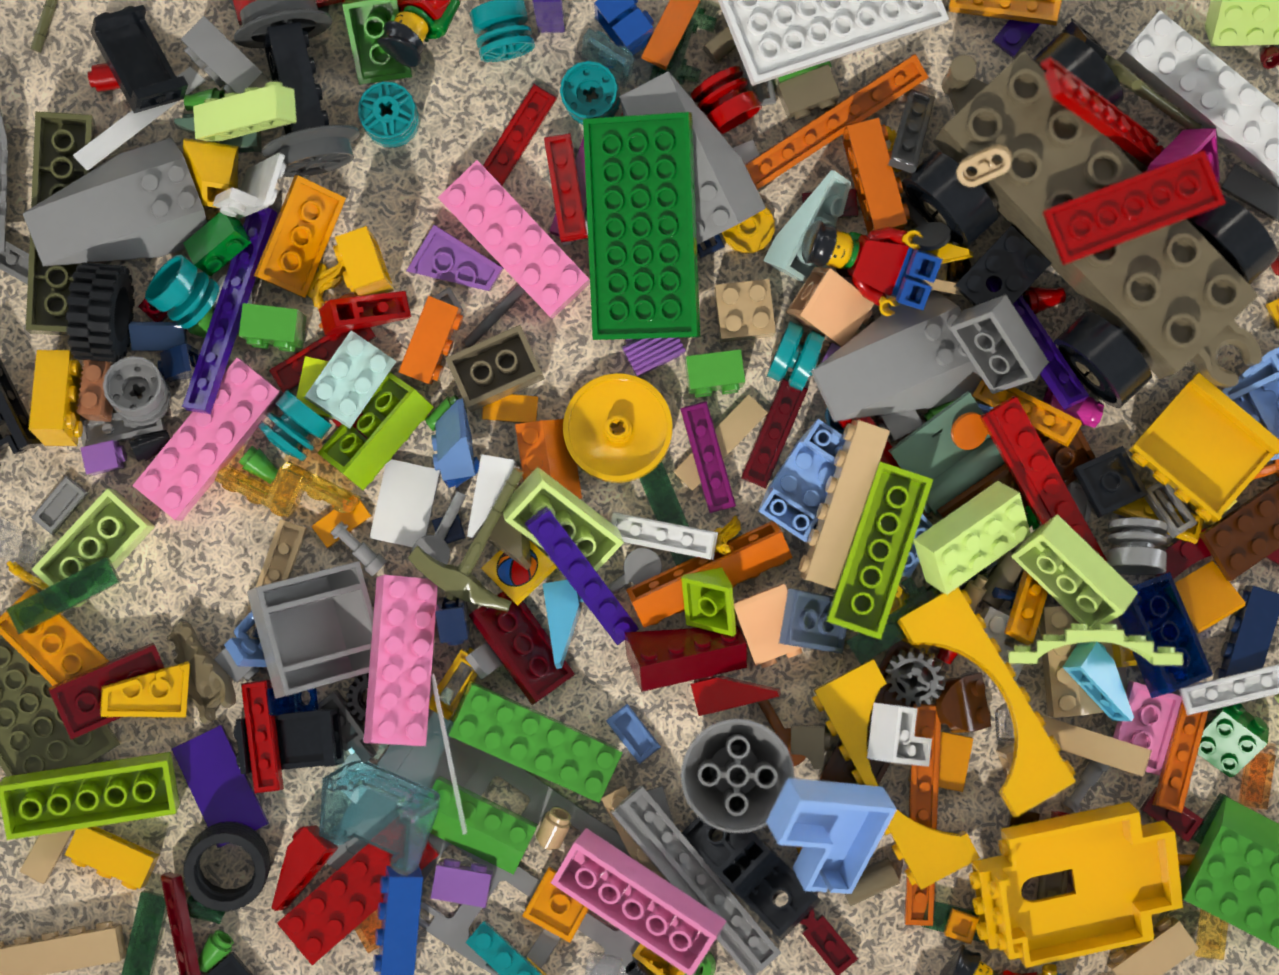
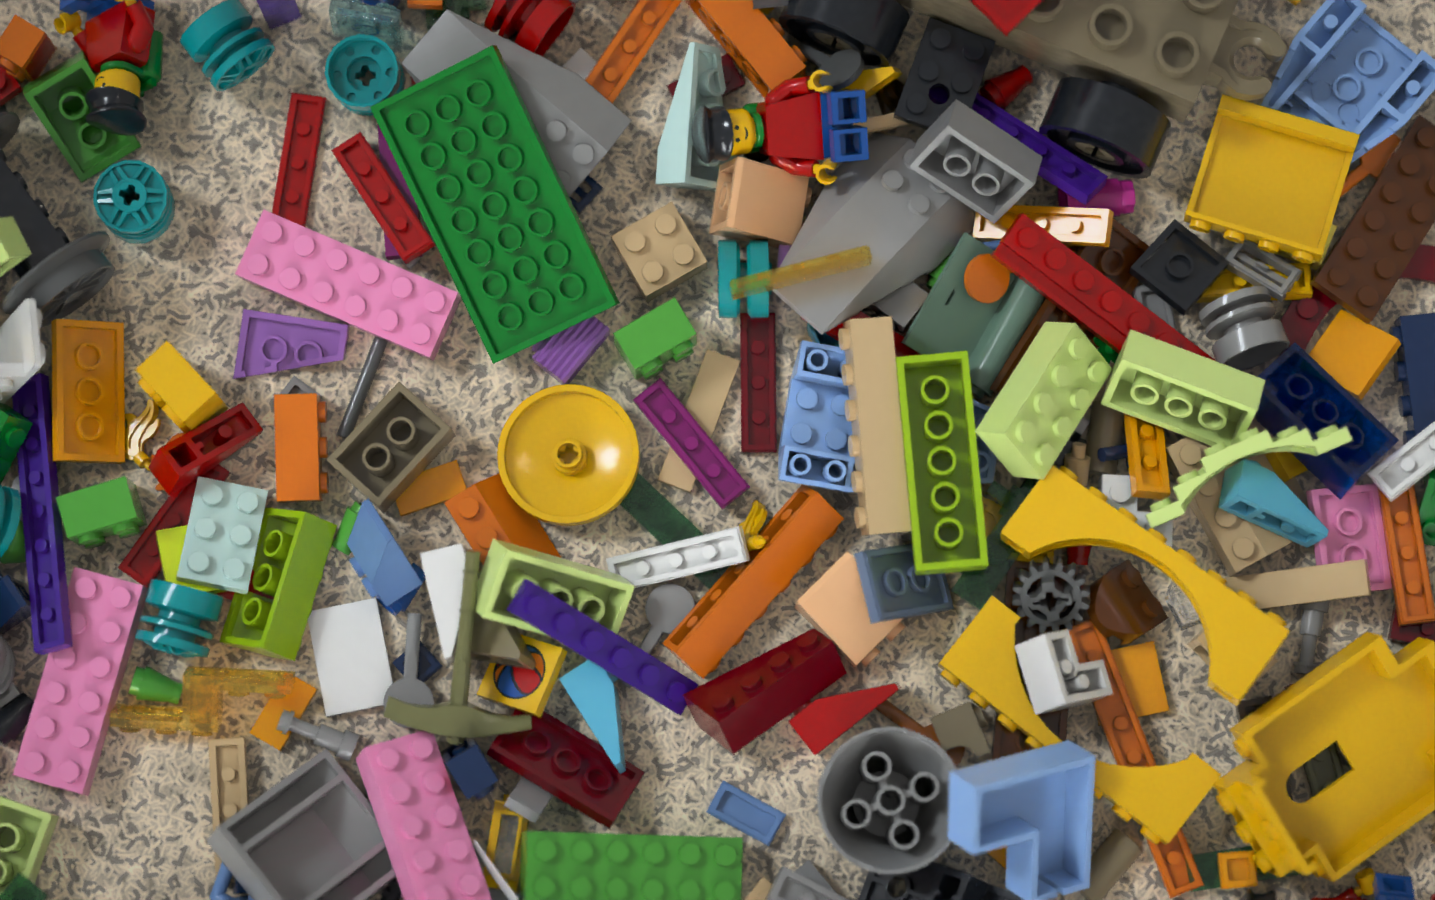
camera: 25 degrees left, 5 degrees down
(709, 601) = (767, 612): lime slope -> none
(752, 233) = (625, 165): yellow tile -> none
(838, 371) = (800, 272): none -> clear yellow tile

